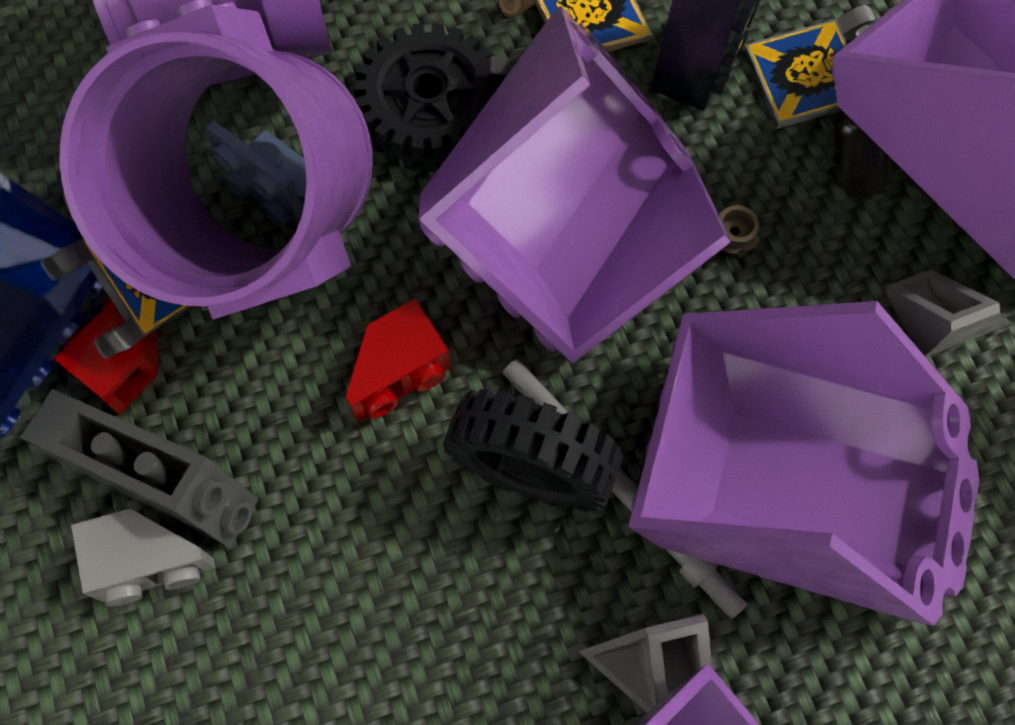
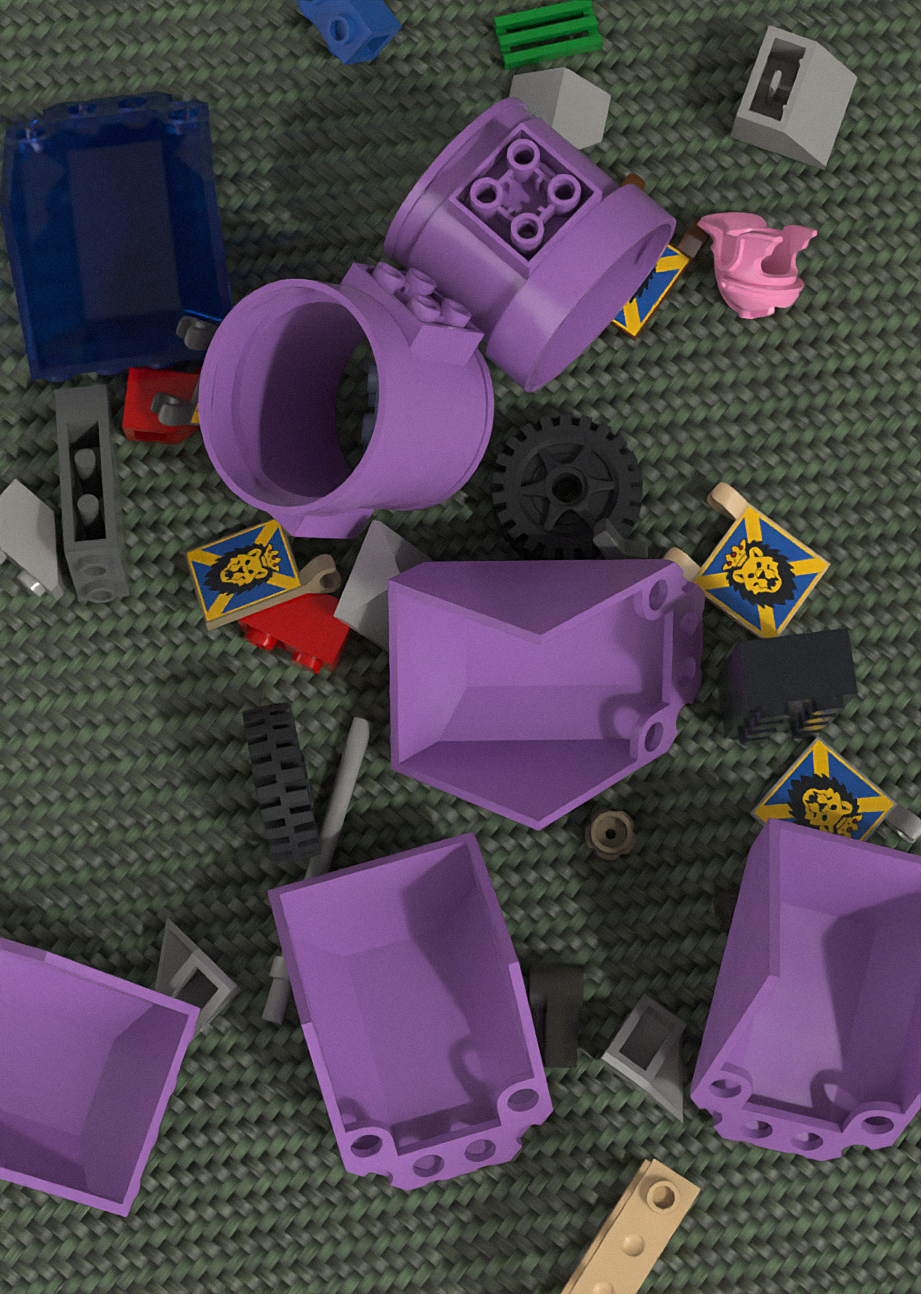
camera: 55 degrees right, 10 degrees up
(318, 364) = (254, 573): none -> flag
(417, 269) = (365, 596): none -> light grey slope

